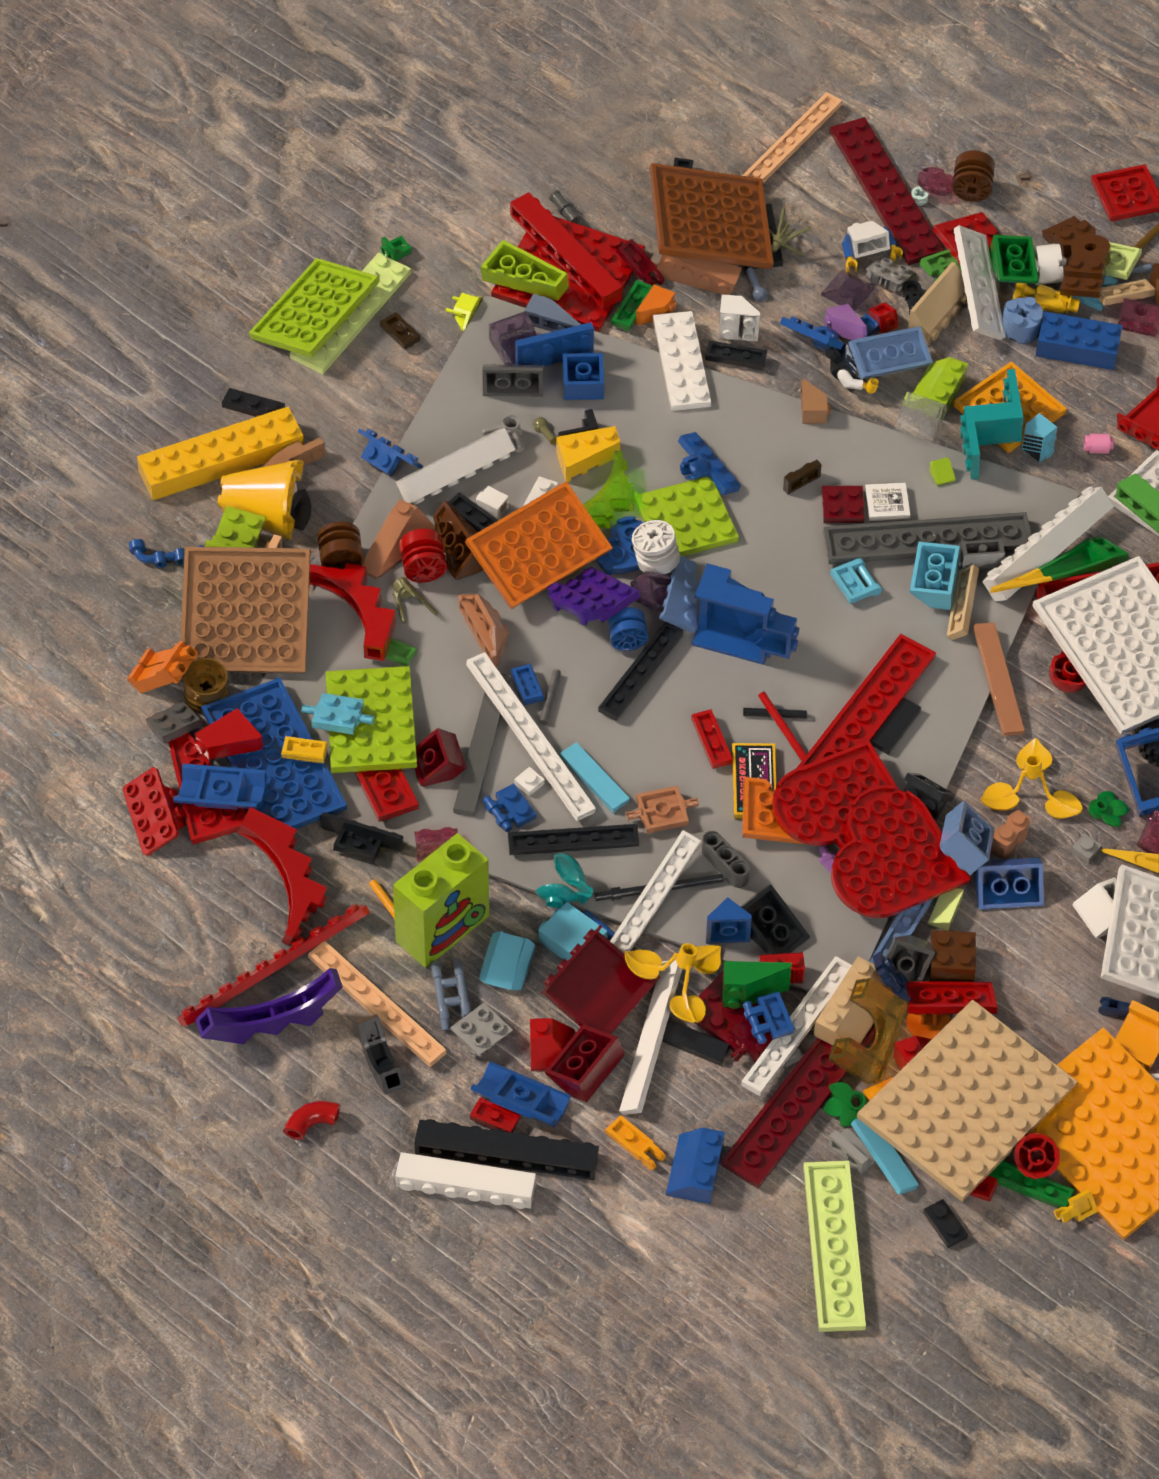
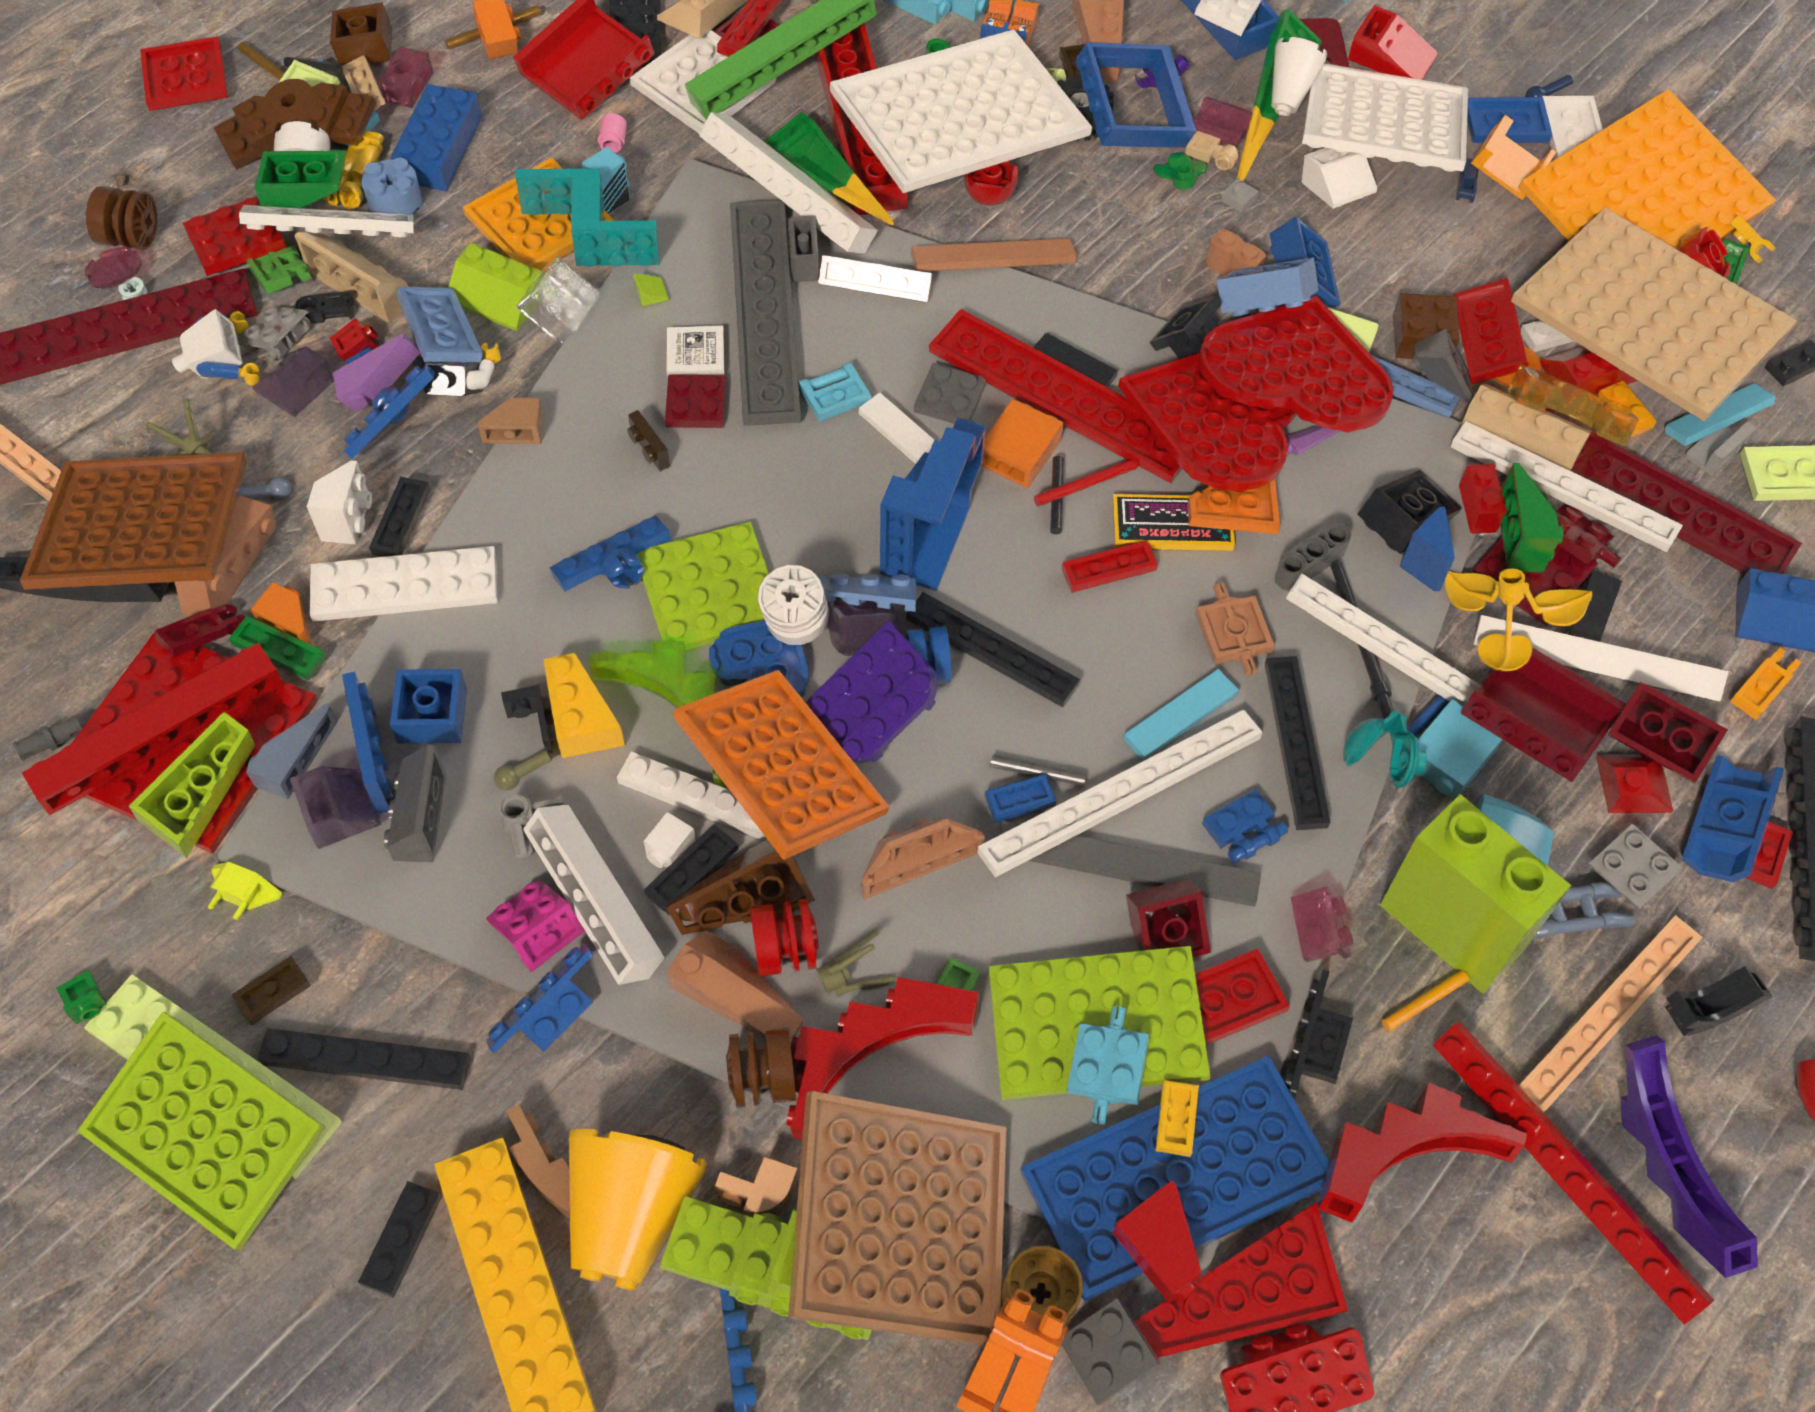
camera: 90 degrees left, 5 degrees up
(222, 787) = (1264, 1256): blue piece -> none
(358, 379) = (364, 1058): none -> black plate
(435, 441) = (536, 923): none -> dark pink bracket
(529, 781) = (1193, 800): white plate -> none
(775, 1016) = (1578, 498): blue plate -> none
(815, 688) = (1021, 443): none -> orange brick
(823, 623) = (896, 427): none -> white tile
(841, 1103) = (1654, 446): green plate -> none
(860, 650) = (949, 394): none -> dark grey plate
(890, 976) = (1486, 374): dark blue plate -> none
(935, 574) = (837, 292): medium azure slope -> none
(1033, 761) = (1178, 212): yellow plant -> none
(1132, 824) = (1205, 147): none -> tan plate
(1140, 262) = (329, 68): none -> black bar

